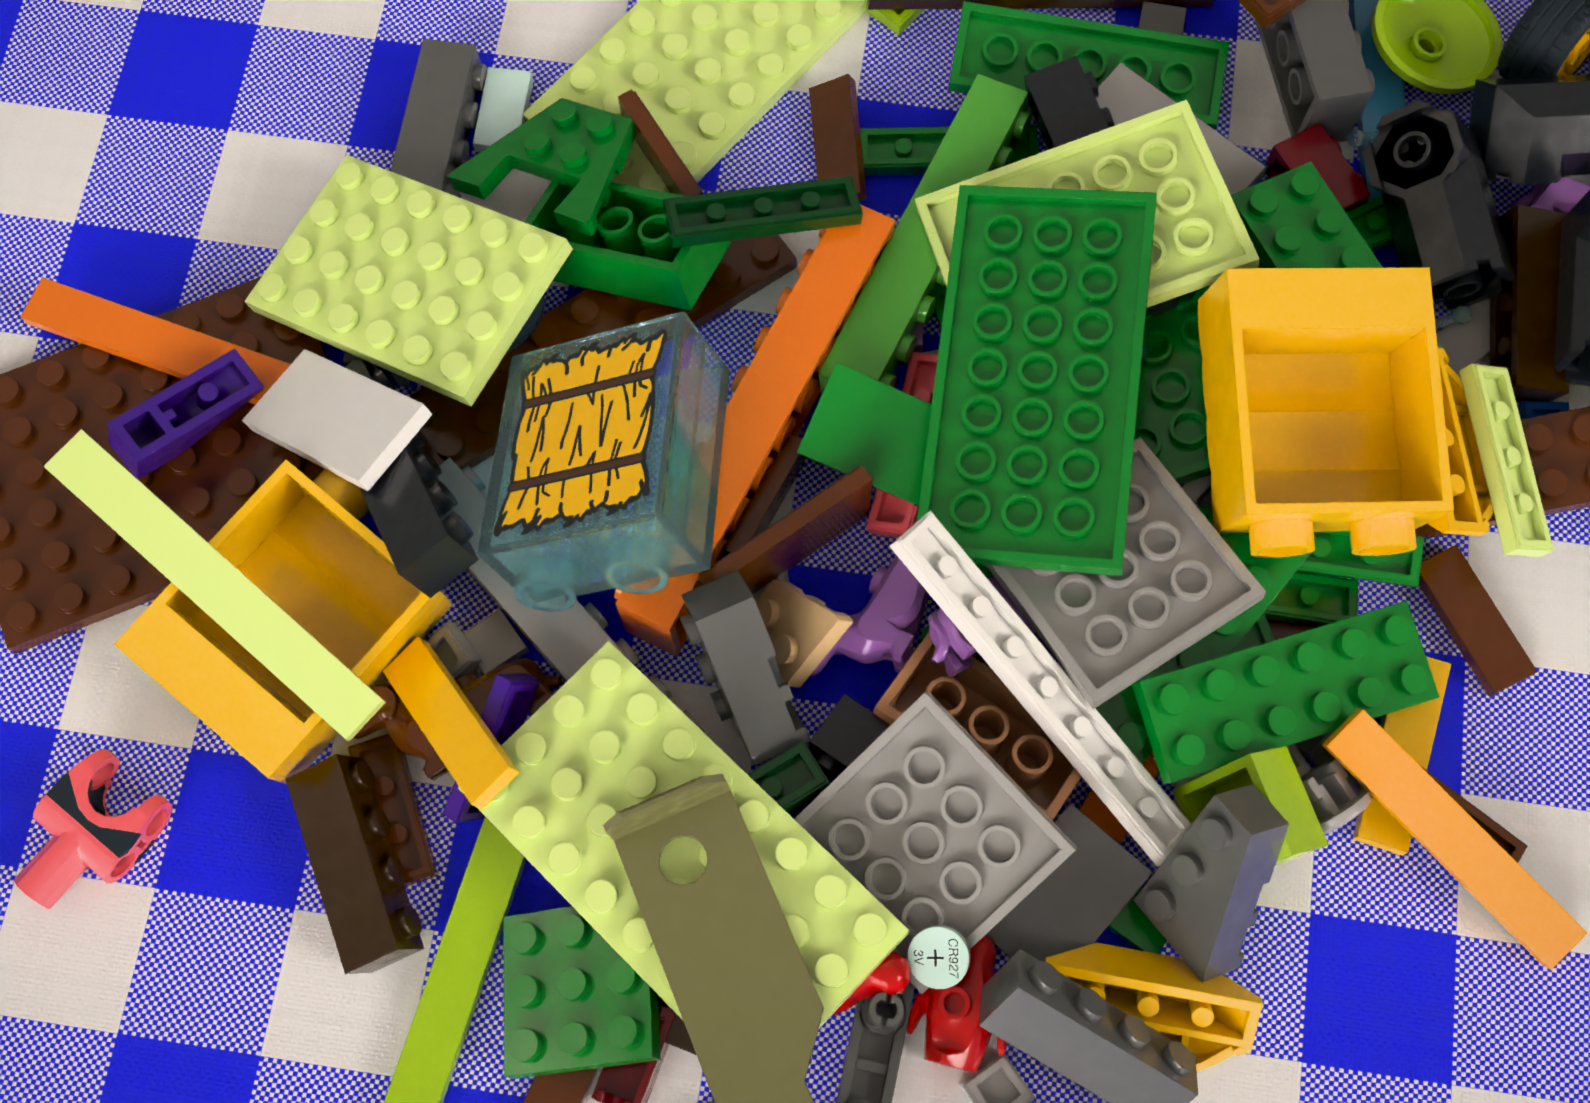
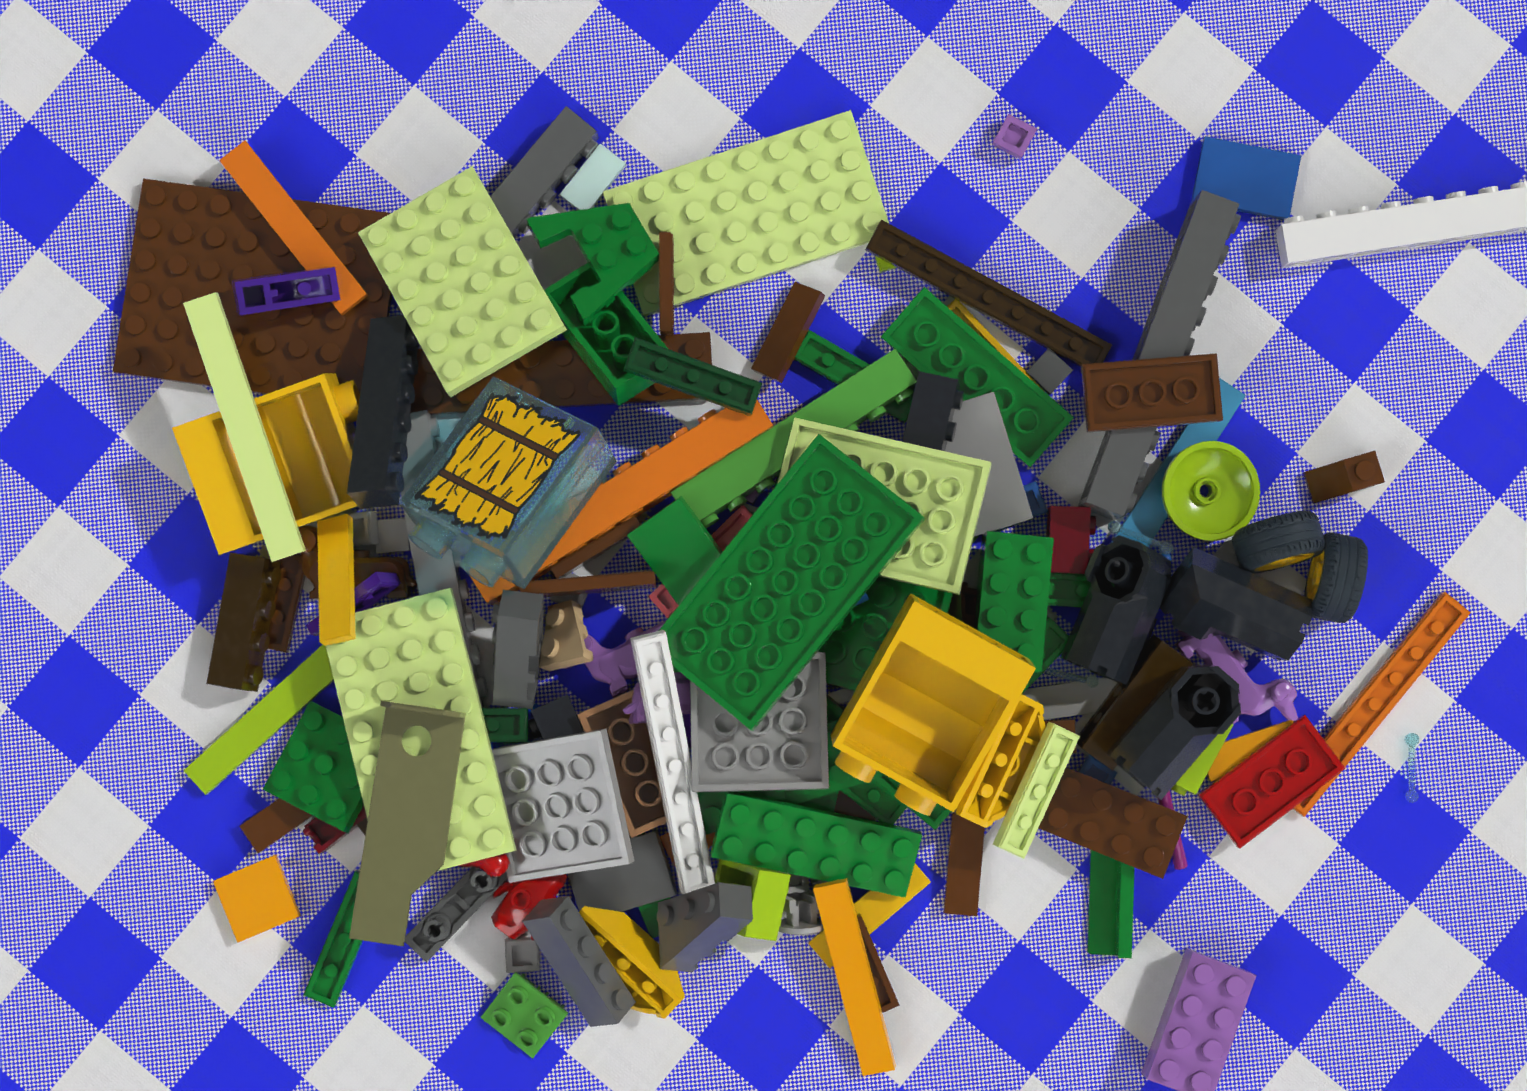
camera: 30 degrees right, 15 degrees up
(86, 832) = (105, 513): coral connector -> none
(337, 418) = (368, 356): white tile -> none
(939, 956) = (527, 871): light aqua piece -> none

